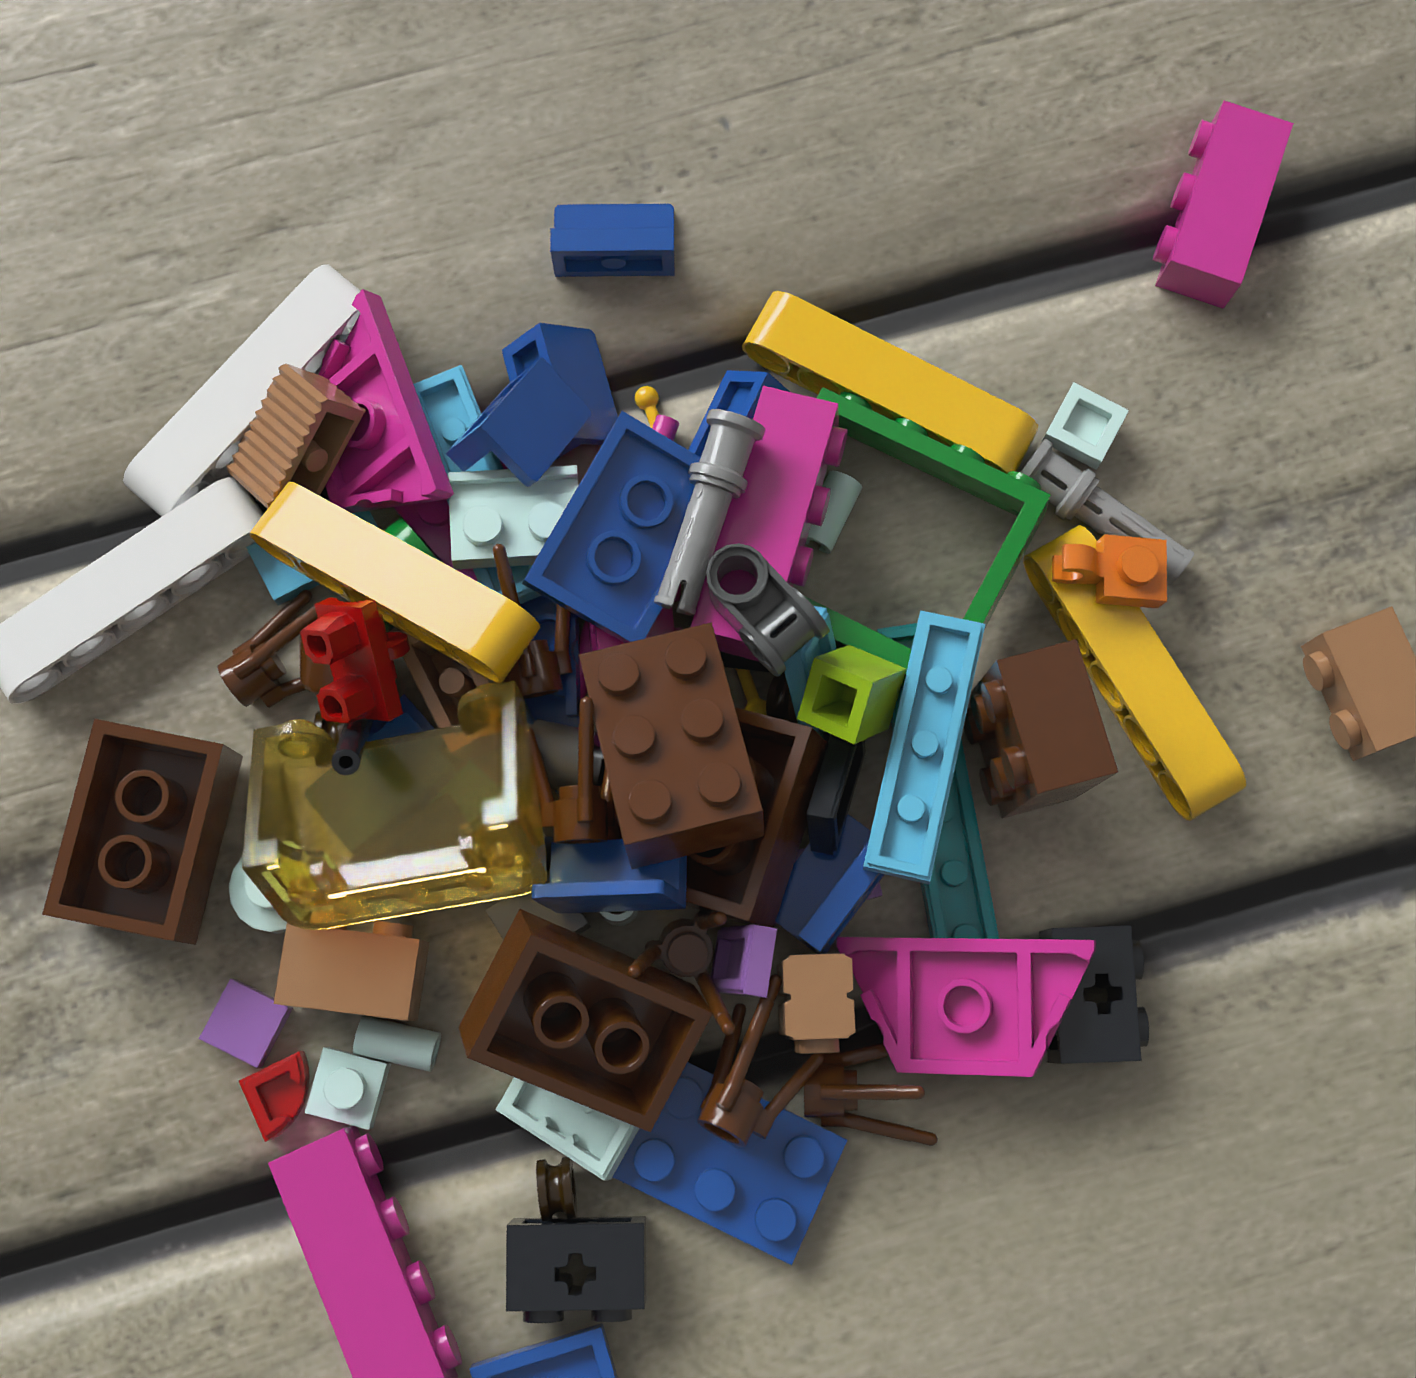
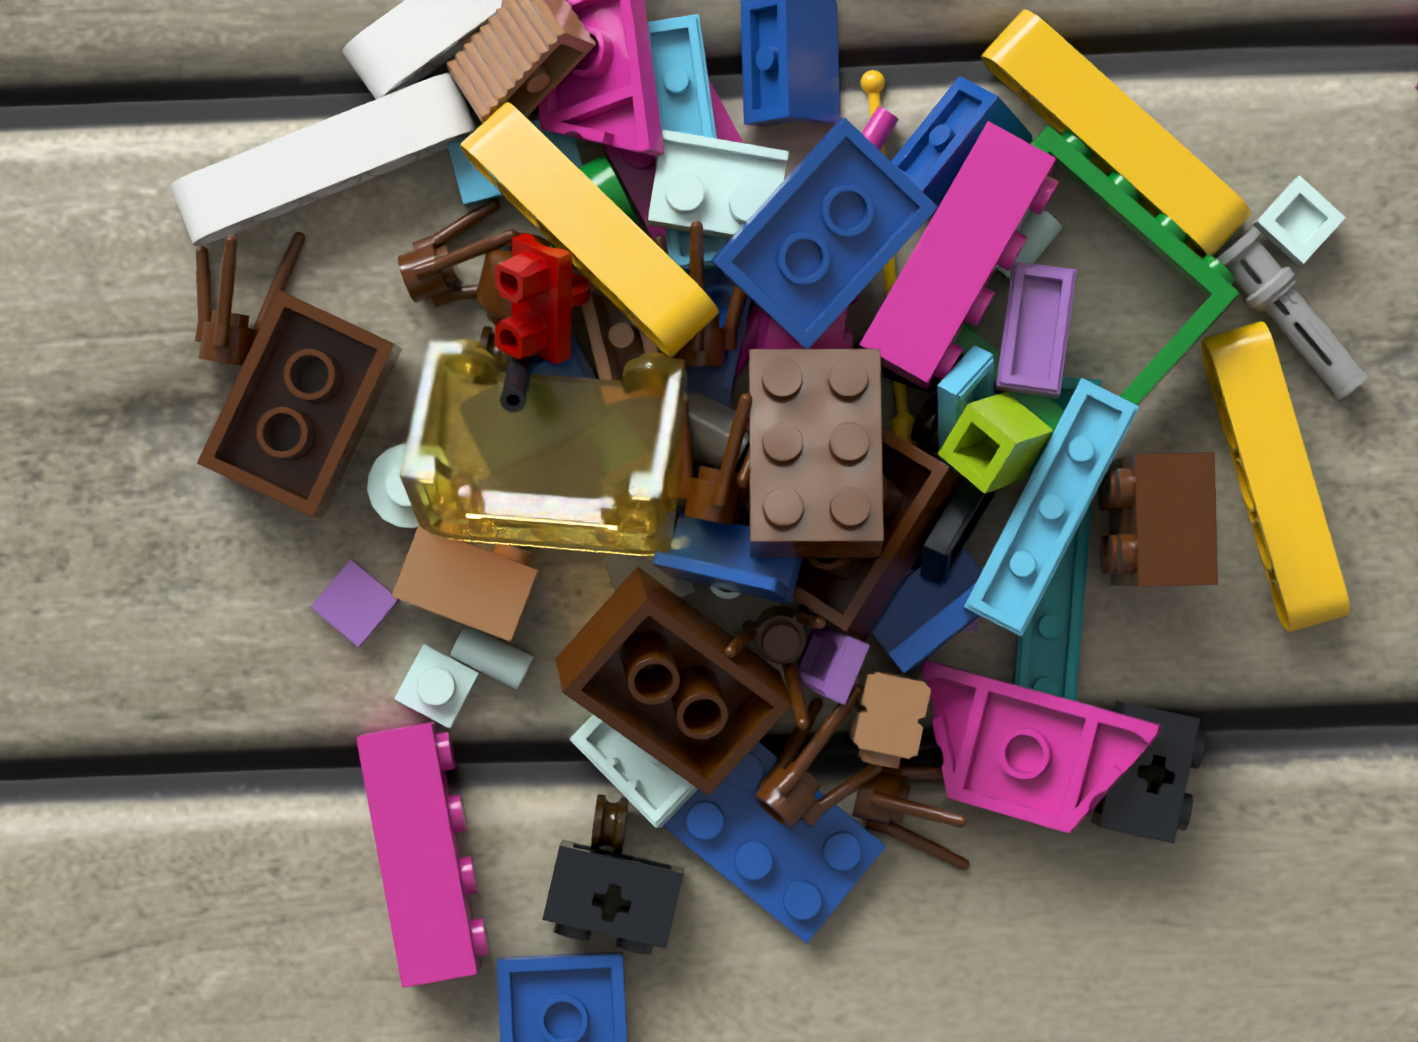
camera: 15 degrees right, 10 degrees up
(52, 777) = (224, 333): none -> reddish brown plant
(277, 1094) = (371, 674): red tile -> none
(525, 424) = (746, 96): blue panel -> none
(716, 481) = (919, 211): light grey pin -> none
(772, 616) = (933, 351): dark grey piece -> none
(862, 578) = (1035, 329): none -> medium lavender tile
(1121, 567) = (1288, 380): orange plate -> none

